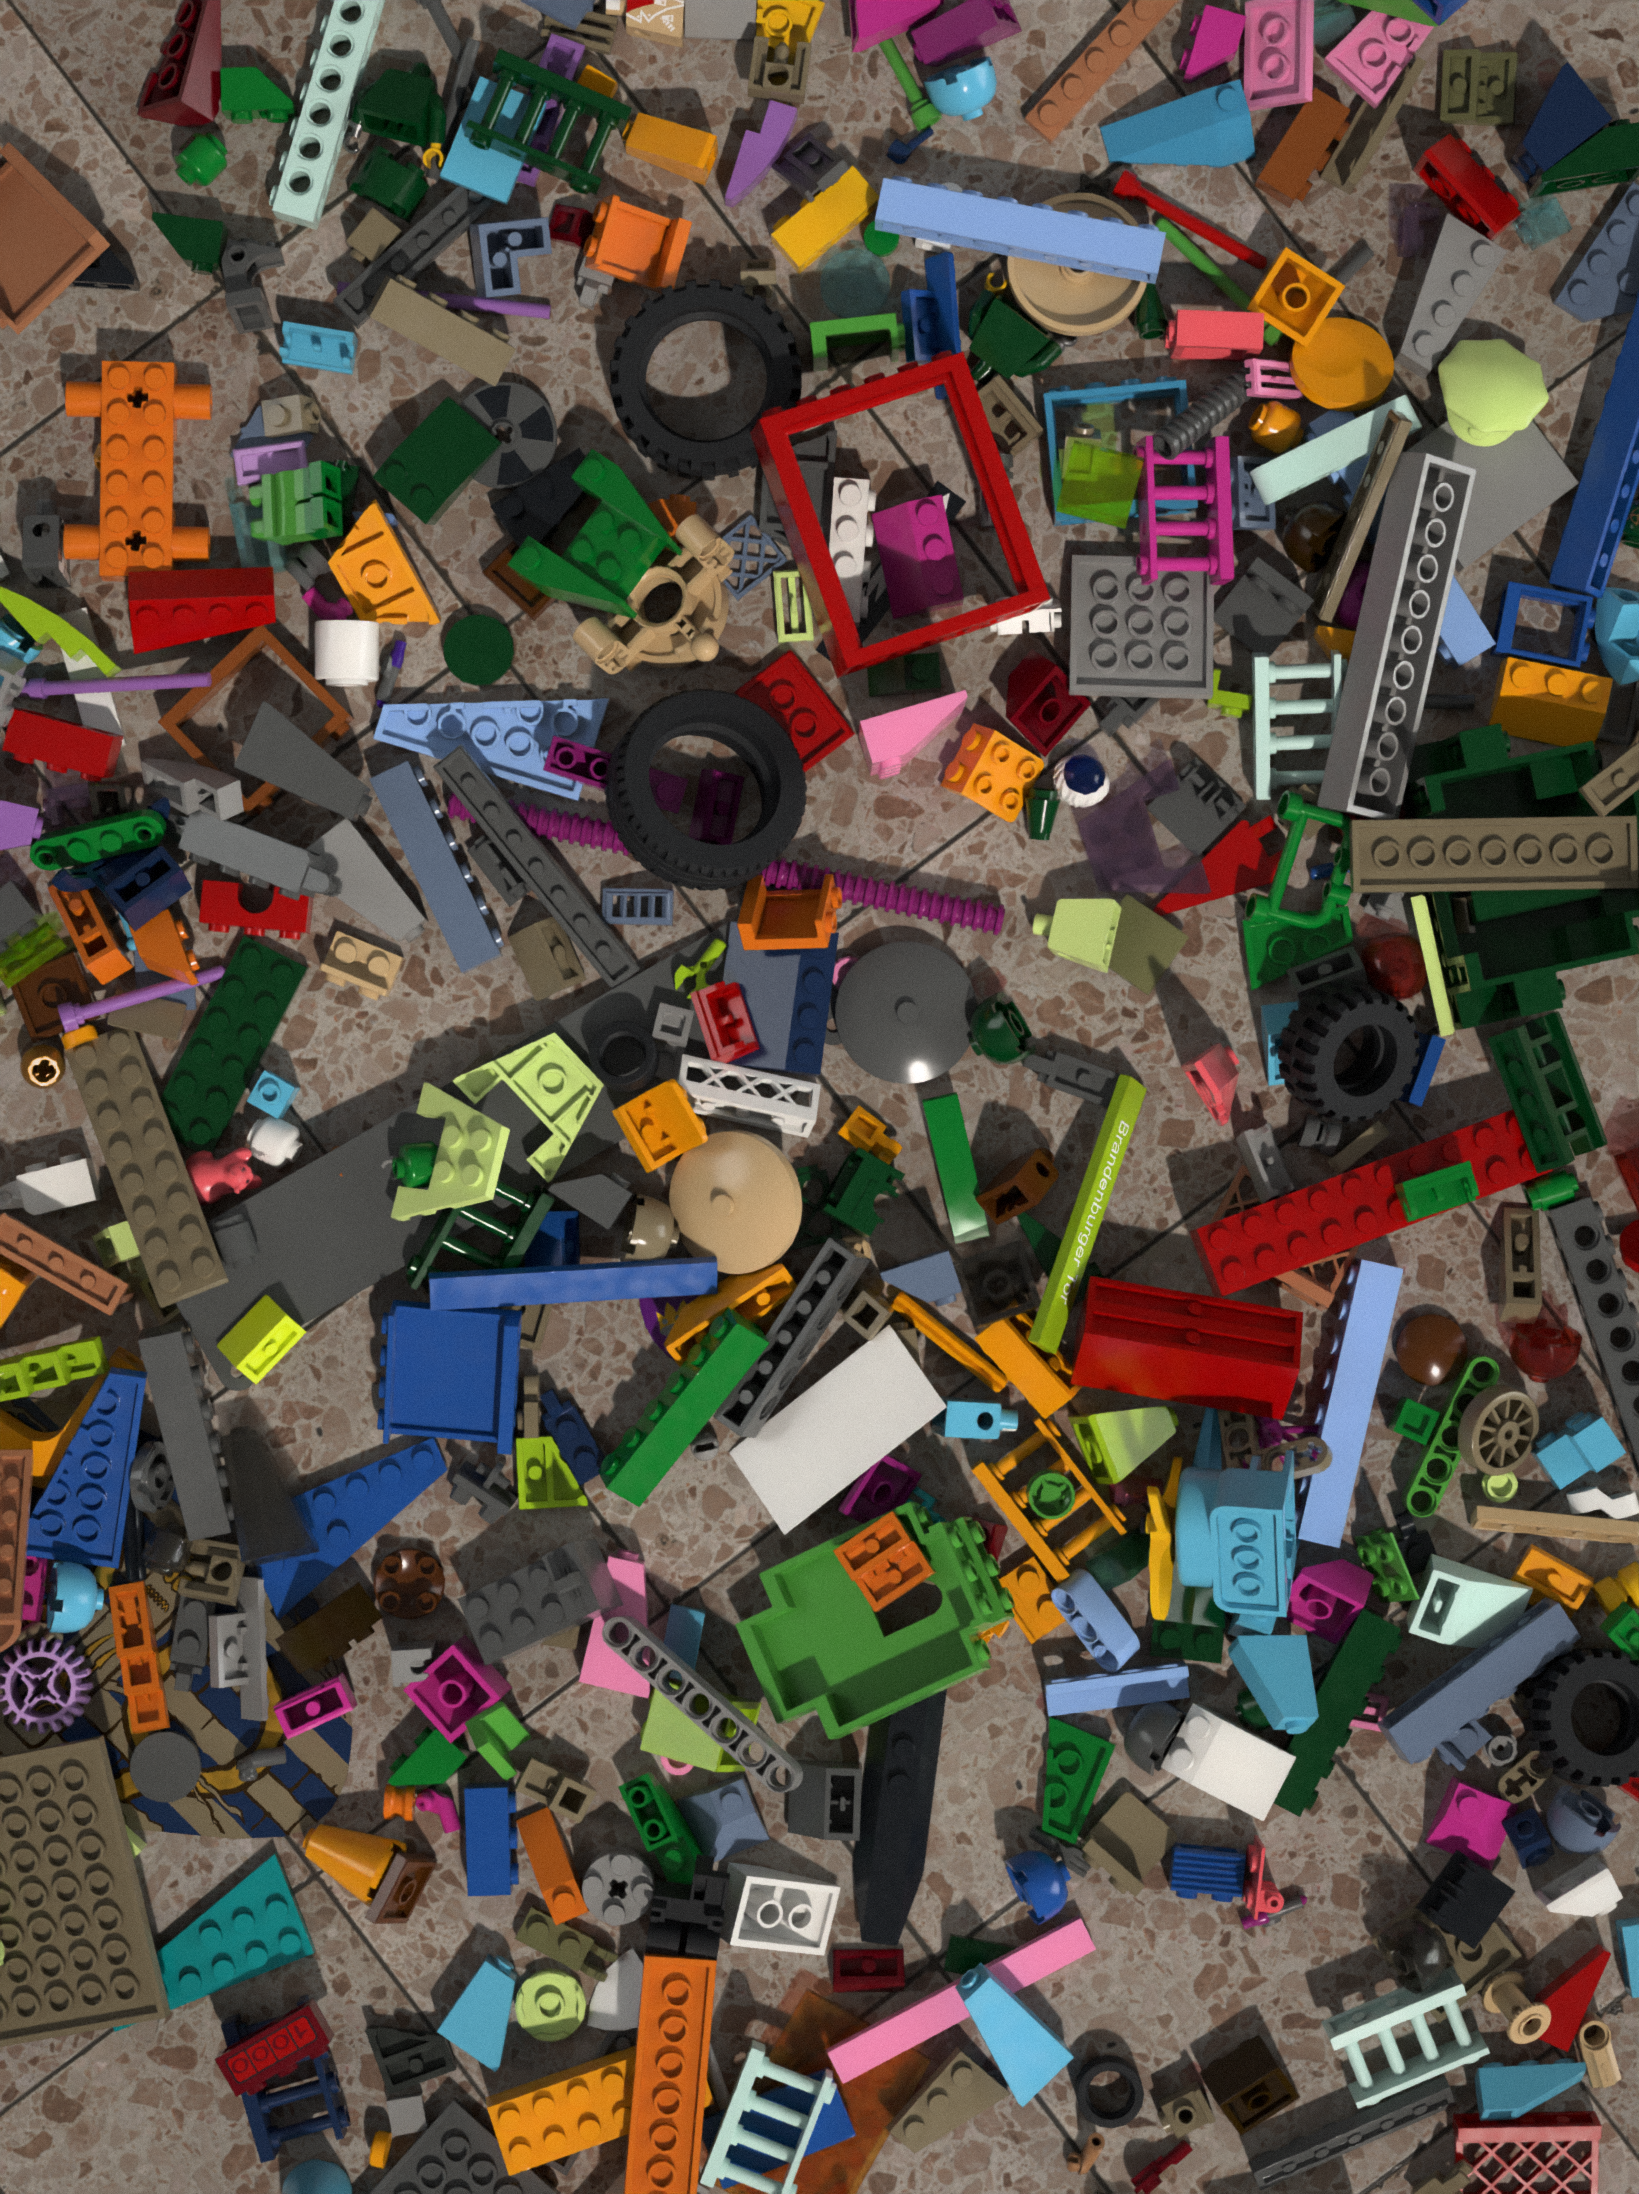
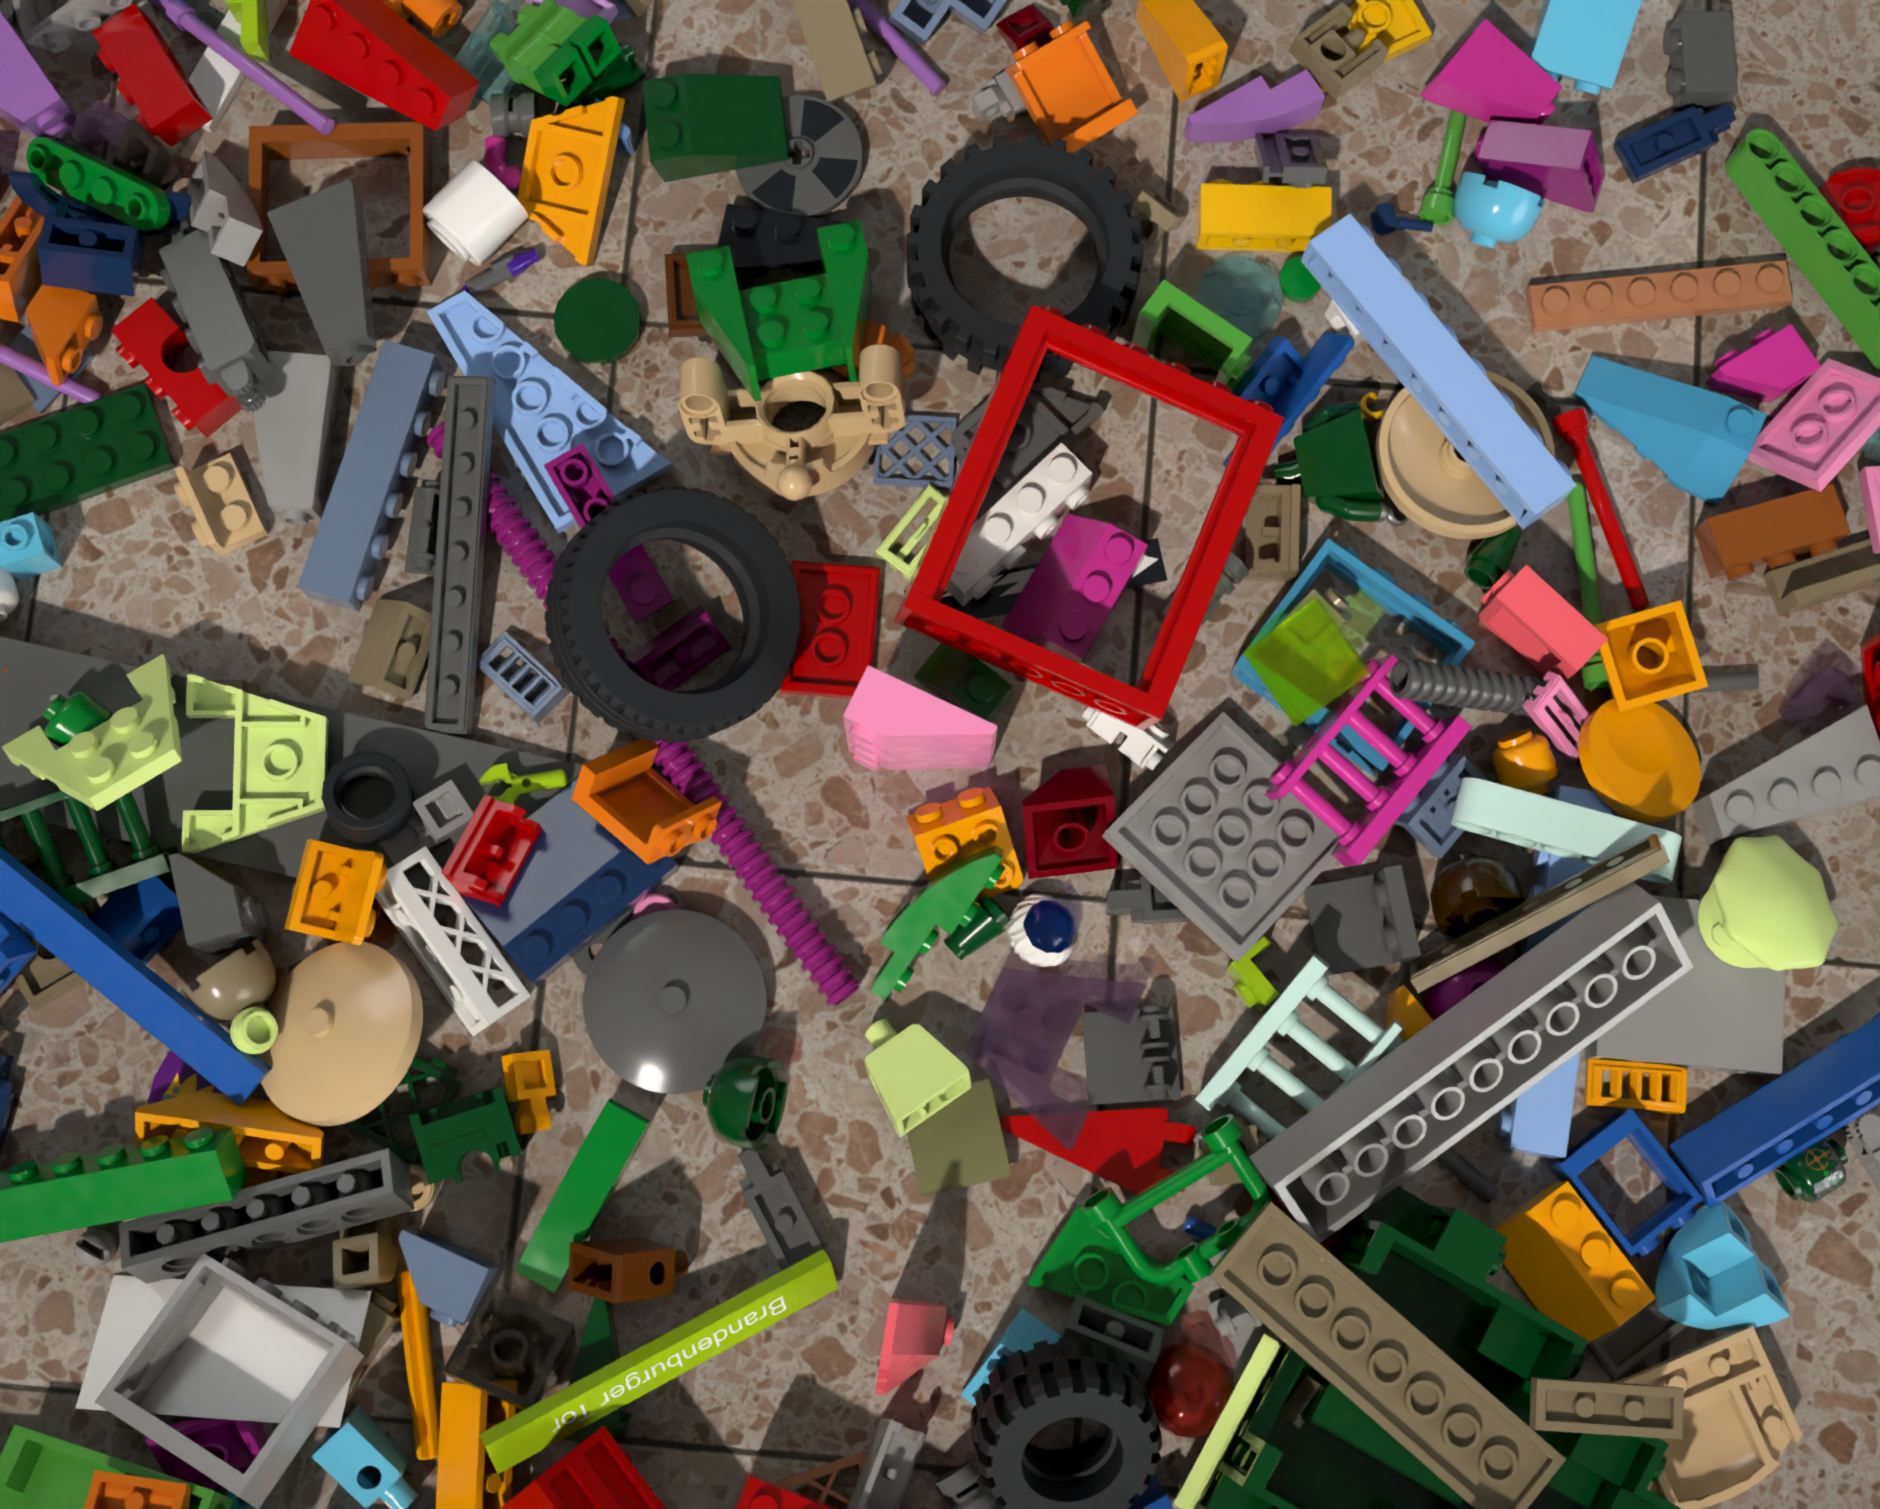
camera: 40 degrees right, 10 degrees down
(687, 1243) = (254, 1030): none -> yellowish green plate
(834, 1380) = (169, 1333): none -> light grey window
(1010, 817) = (941, 902): none -> green slope
(1526, 545) = (1675, 1090): none -> light orange slope

